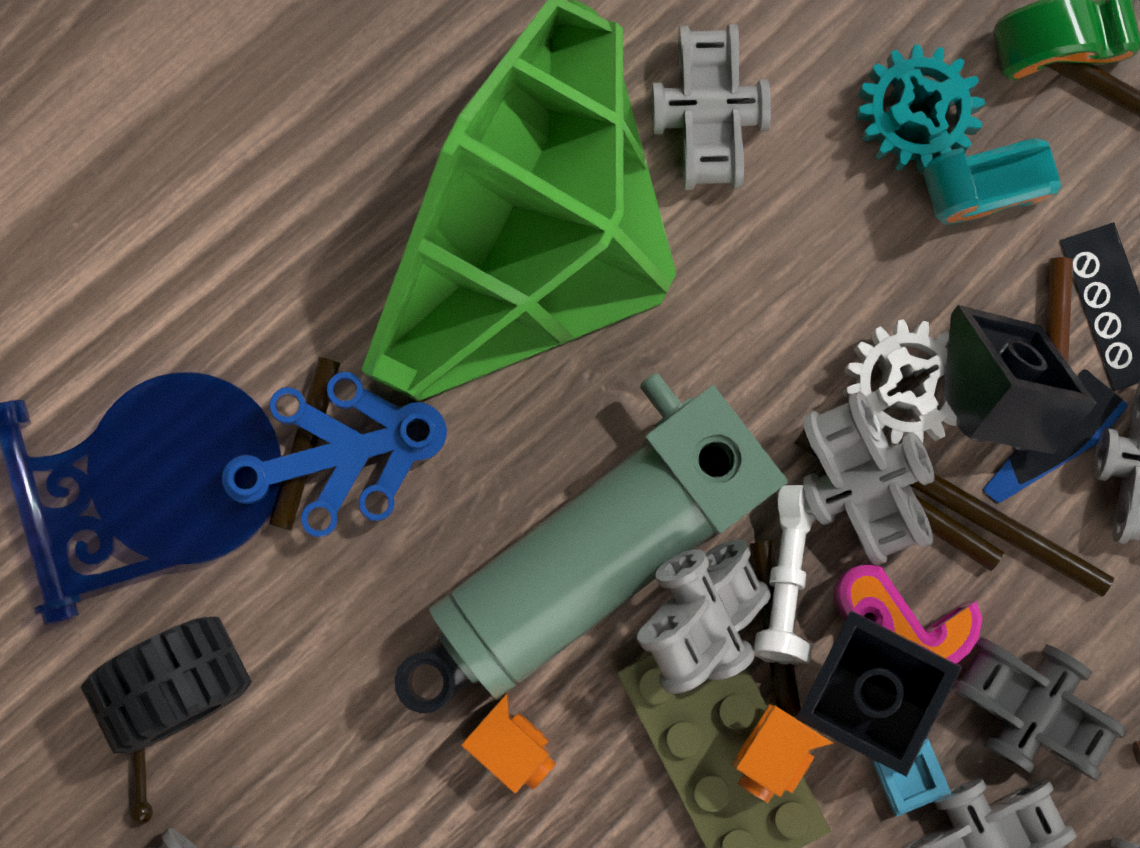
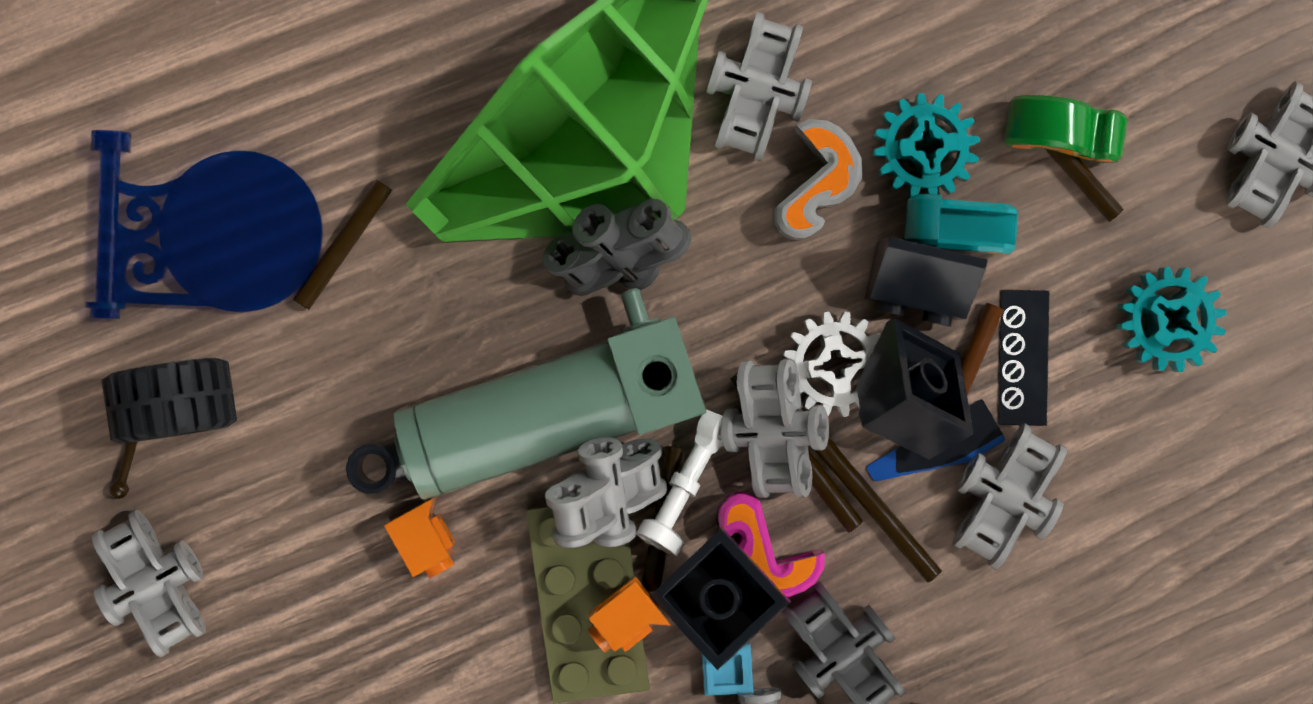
camera: 20 degrees right, 5 degrees up
(346, 451) = (372, 263): blue plant -> none
(617, 334) = (617, 247): none -> dark grey axle
(834, 181) = (828, 187): none -> light grey animal
(974, 252) = (923, 280): none -> black slope

